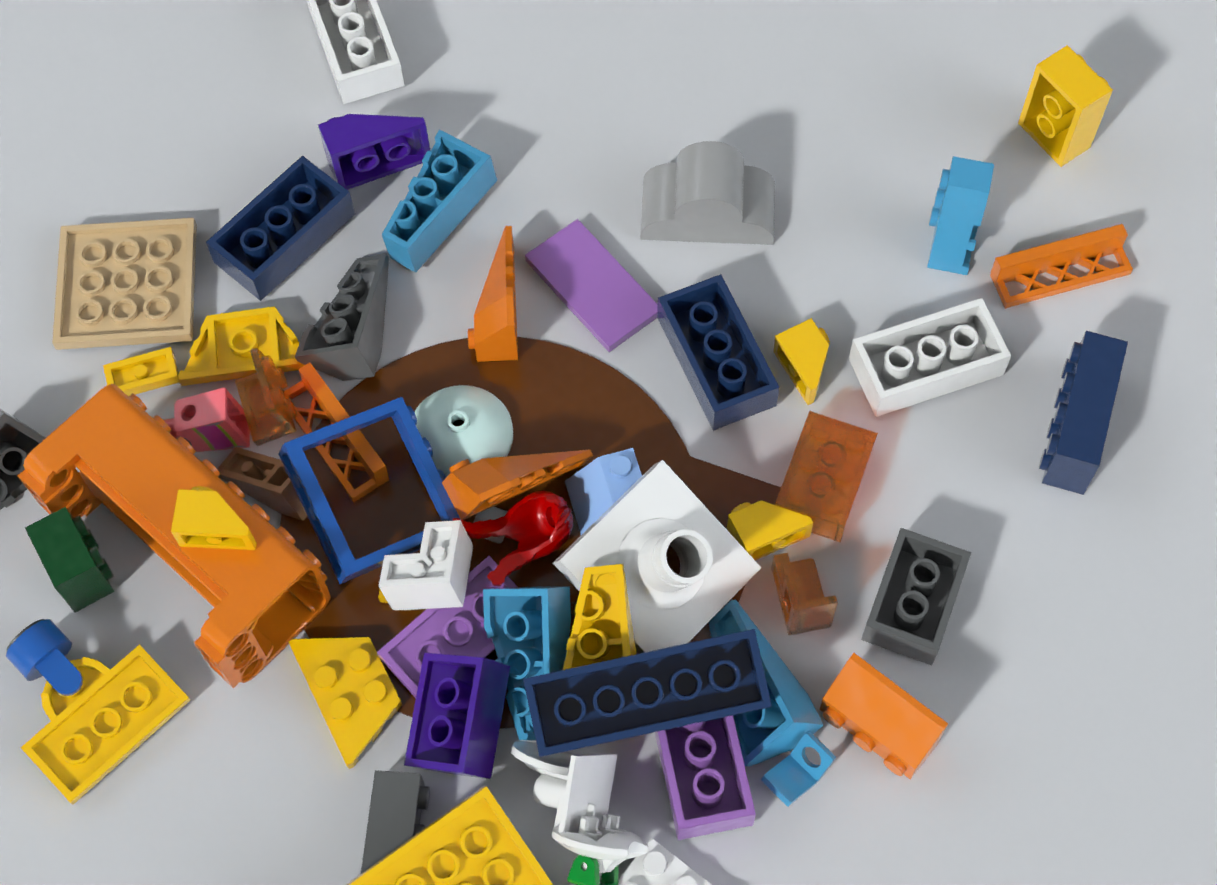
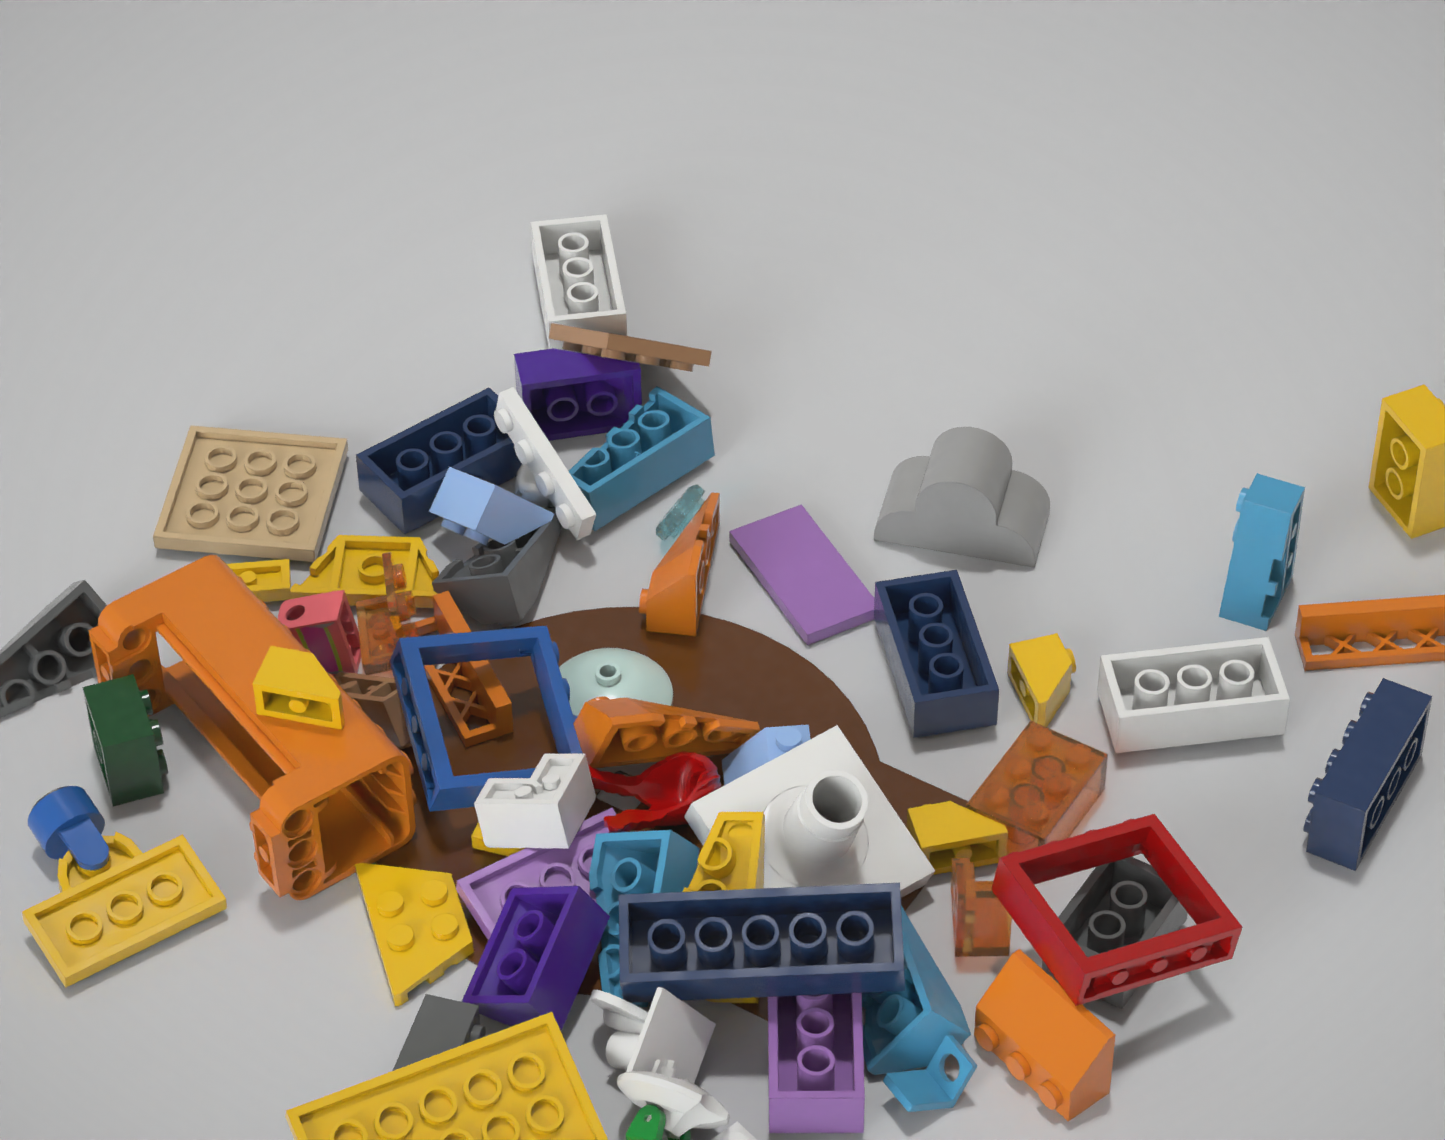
camera: 10 degrees right, 20 degrees down
(325, 274) = (485, 510): none -> light blue slope
(361, 231) = (542, 472): none -> white plate
(410, 97) = (629, 348): none -> medium nougat plate
(483, 247) = (681, 512): none -> clear light blue gear
(880, 645) = (1131, 965): none -> red window

